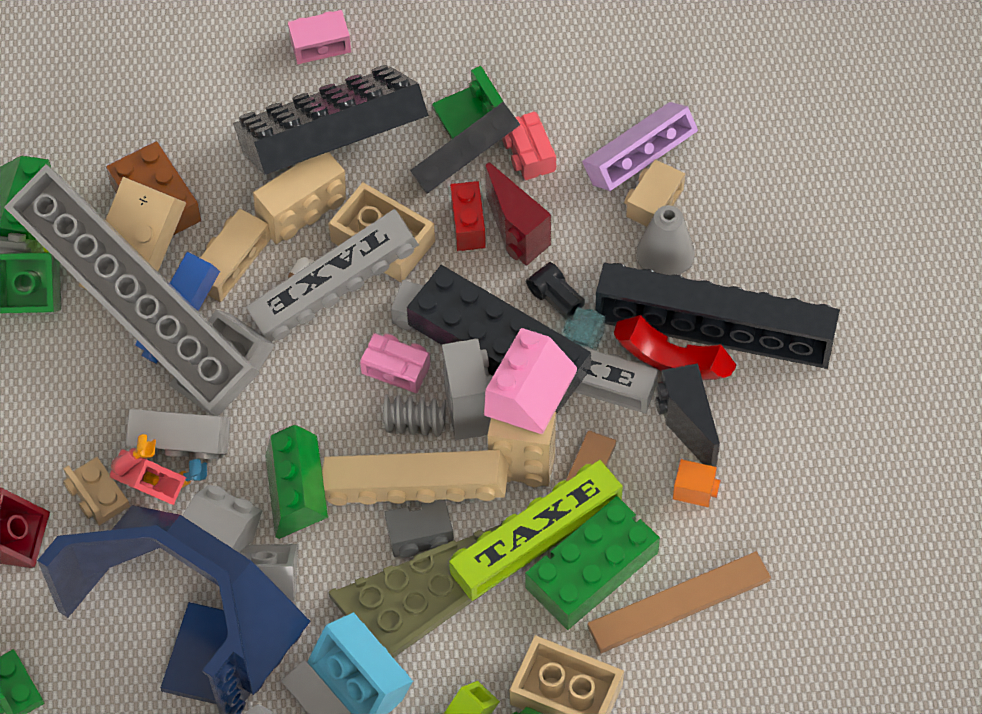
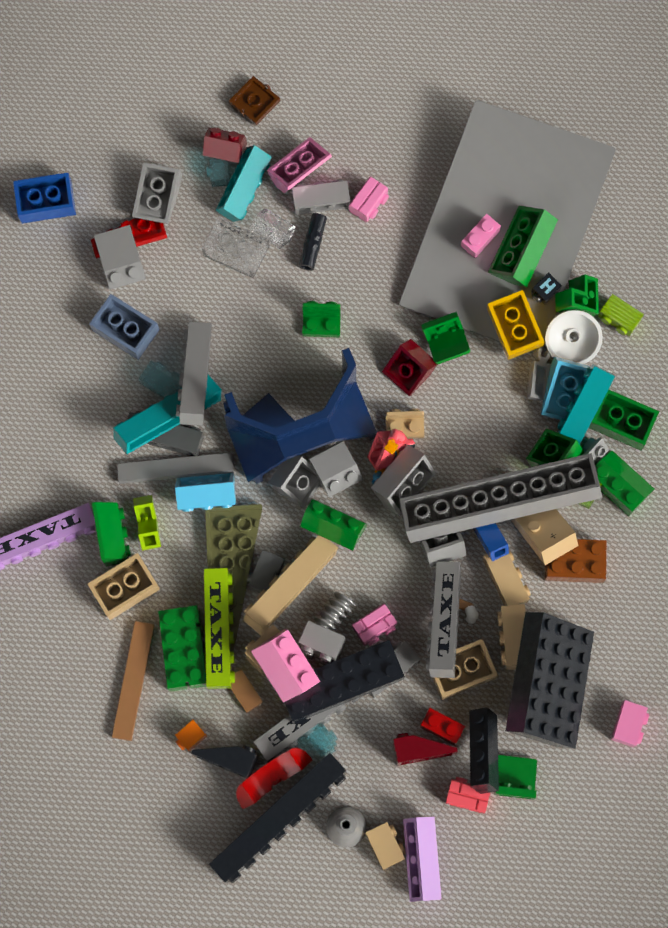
camera: 125 degrees right, 15 degrees up
(550, 285) = (365, 743): black piece -> none

